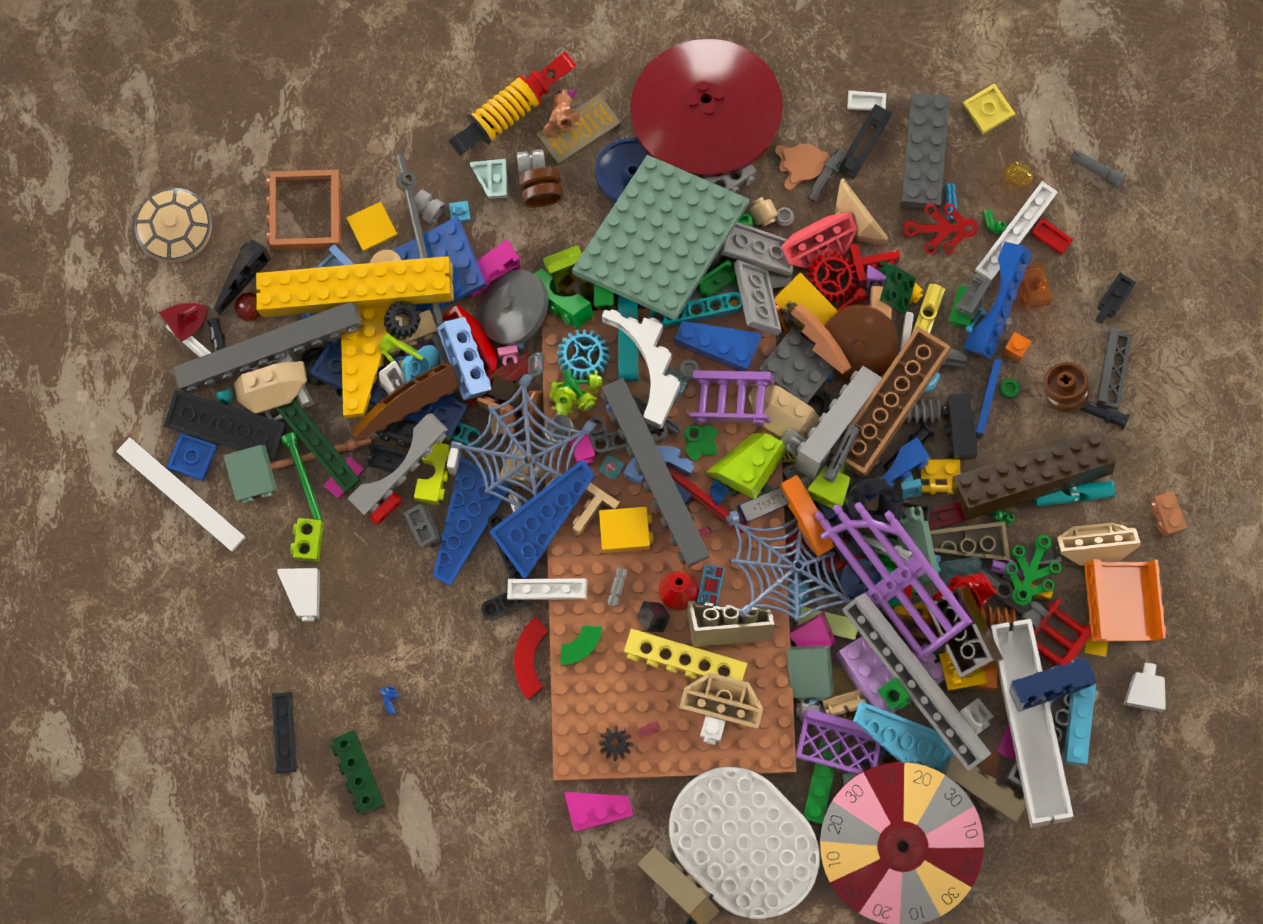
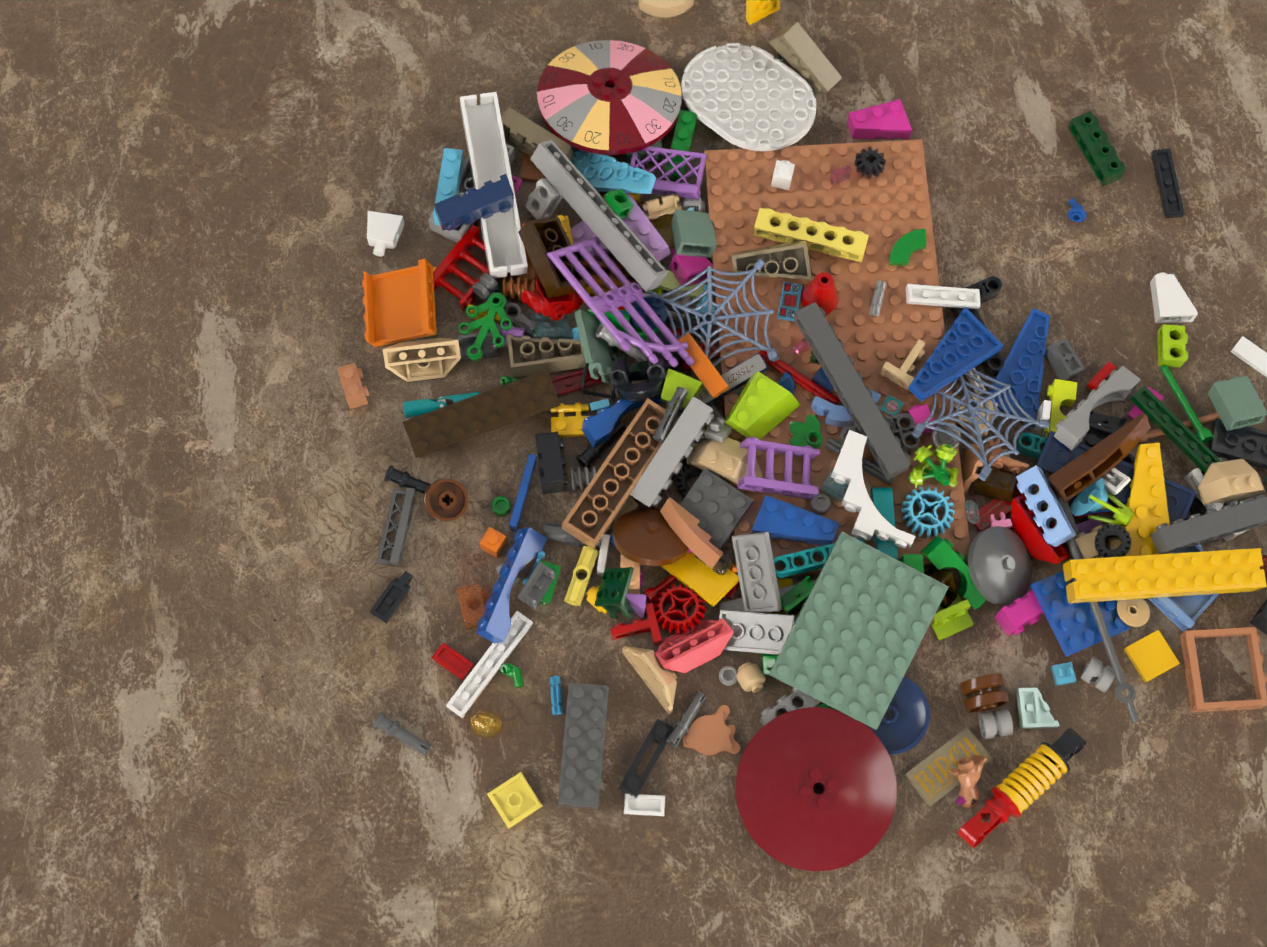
camera: 175 degrees right, 5 degrees down
(524, 657) = (956, 249): red tile -> none
(625, 529) = (874, 346): yellow brick -> none
(653, 616) = (842, 271): black panel -> none
(723, 699) = (775, 193): tan wedge -> none
(944, 228) = (544, 664): red plant -> none

